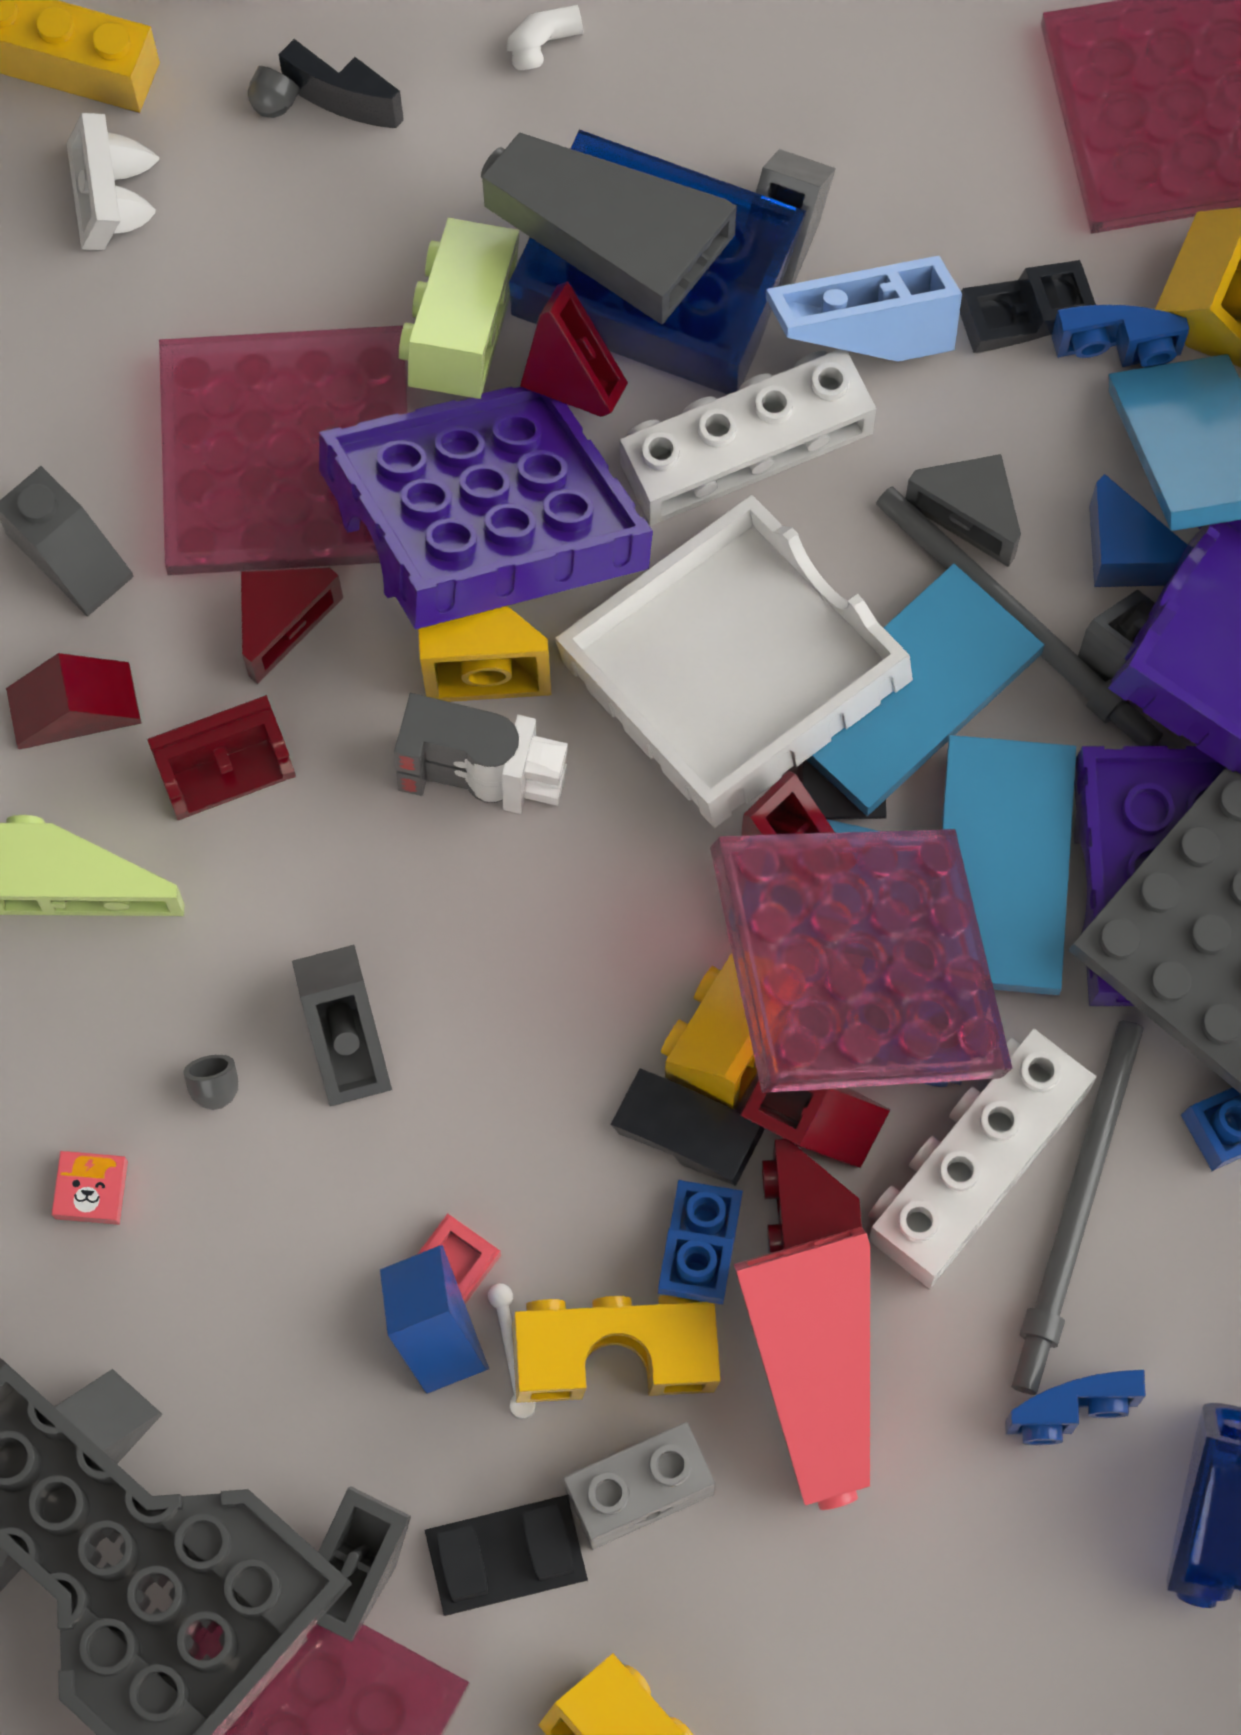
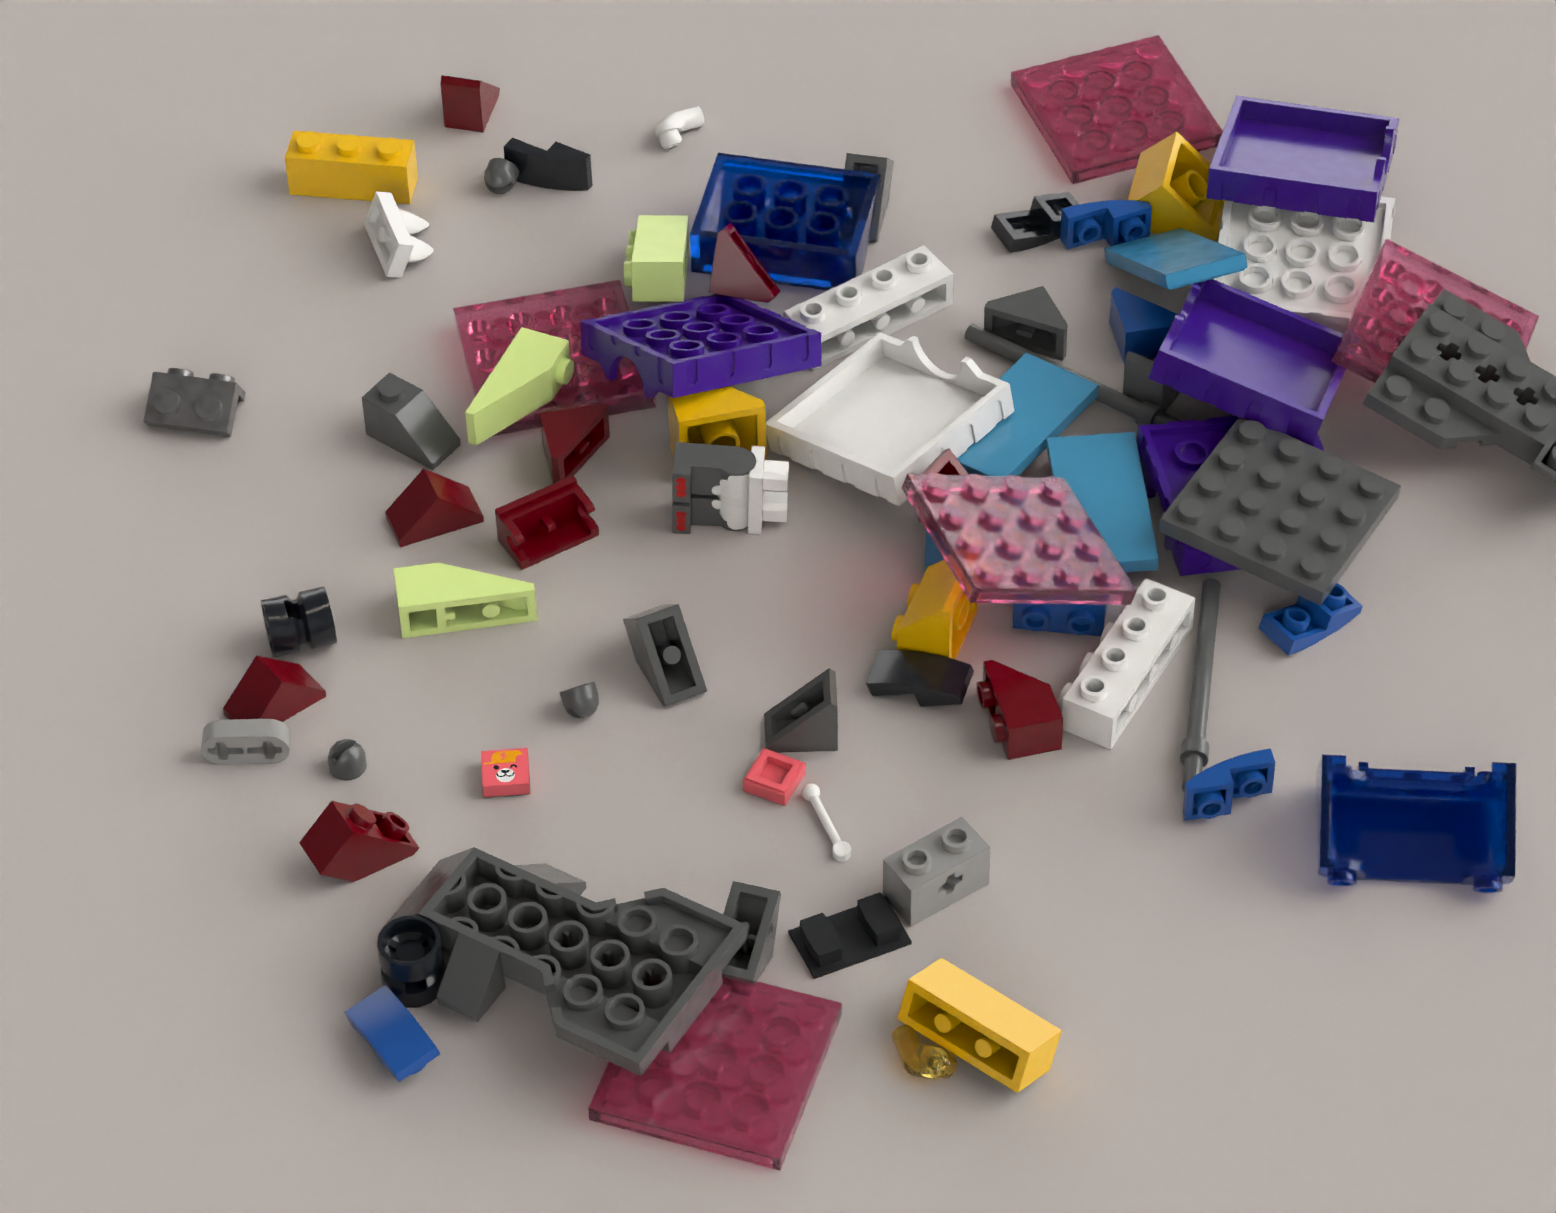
camera: 10 degrees left, 25 degrees down
(223, 513) = (520, 383): none -> yellowish green slope
(430, 1320) = (769, 805): blue slope -> none
(510, 1177) = (805, 719): none -> dark grey slope
(610, 221) = (751, 186): dark grey slope -> none
(671, 1338) = (933, 788): yellow arch -> none
(700, 1242) = (945, 730): blue slope -> none
(815, 1349) = (1041, 769): coral slope -> none
(822, 1120) = (1005, 640): dark red slope -> none
(876, 312) = (954, 222): light blue slope -> none

